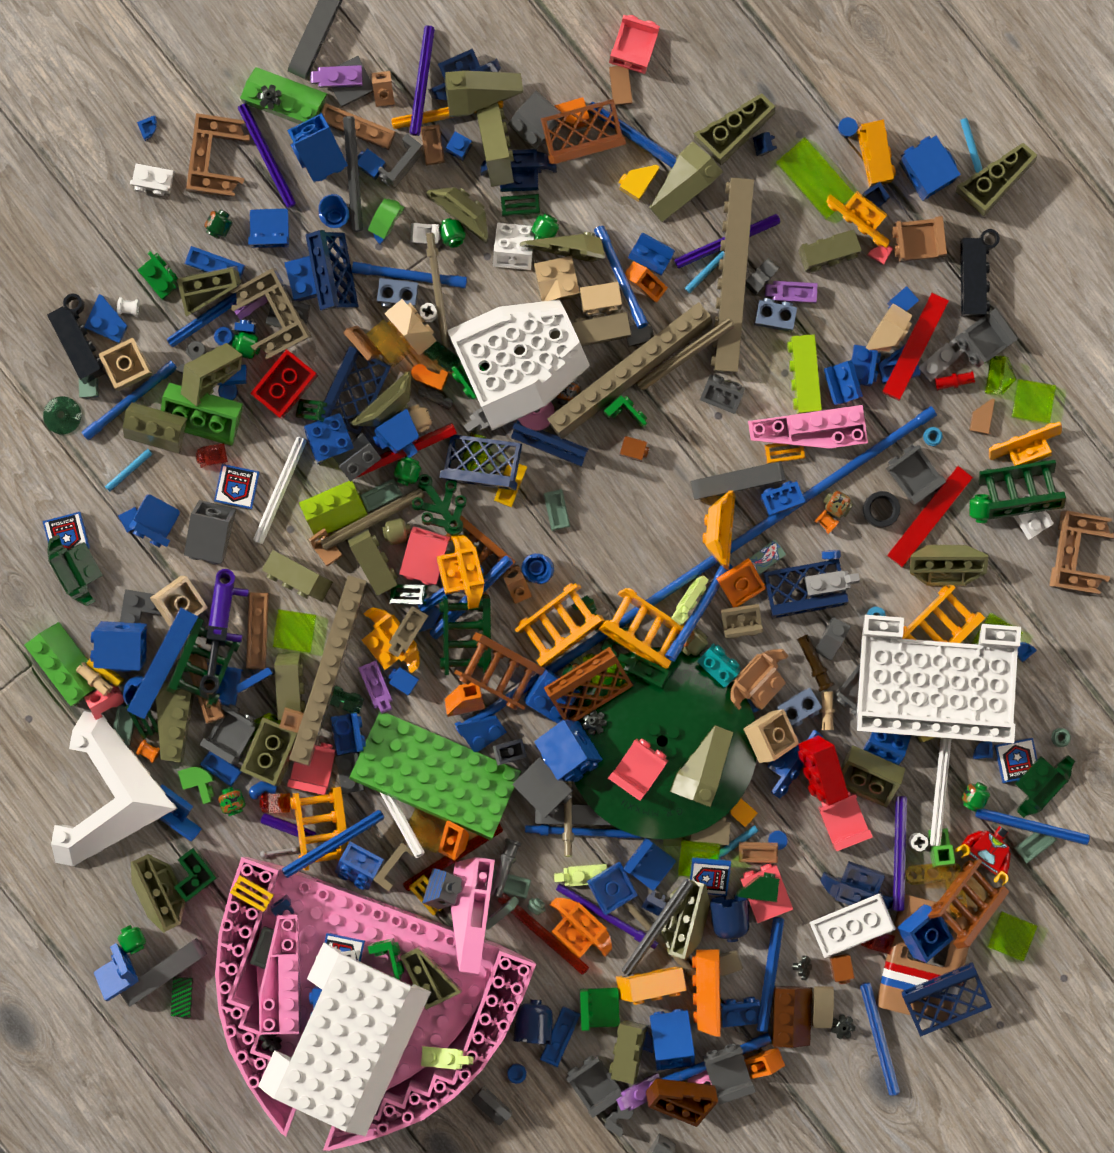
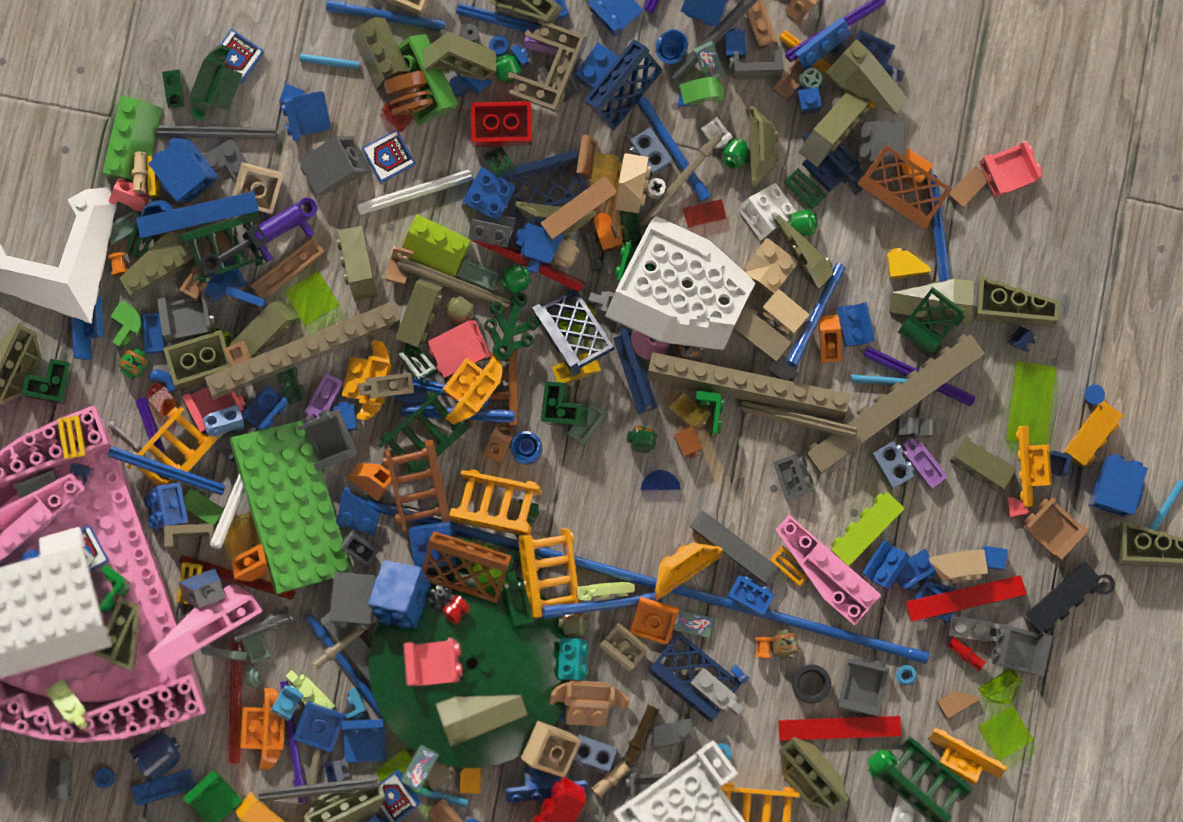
camera: 55 degrees right, 5 degrees down
(51, 601) = (173, 88): none -> dark green leg
(111, 596) = (217, 132): none -> dark grey axle
(204, 432) = (408, 93): none -> dark orange wheel
(332, 771) = (224, 421): none -> medium blue leg
(367, 193) = (709, 60): none -> tile
(380, 839) = (202, 507): none -> bright green tile
(397, 381) = (578, 207): none -> medium nougat tile
(410, 706) = (329, 438): none -> dark grey panel
(426, 99) = (823, 43): none -> blue plate
(446, 128) = (814, 78): none -> sand green wheel
(476, 293) = (704, 213): none -> clear red tile
(528, 521) = (558, 409): none -> dark green brick
(575, 897) = (287, 702): none -> dark azure bracket
(602, 479) = (642, 439): none -> dark green head
(612, 428) = (689, 411): none -> clear yellow bracket
(614, 720) = (455, 609): none -> red wheel
(616, 846) = (355, 700): none -> dark azure bracket
(643, 492) = (660, 481): none -> clear blue tile
(697, 213) = (921, 334): none -> dark green piece
(705, 841) = (419, 767): none -> tile

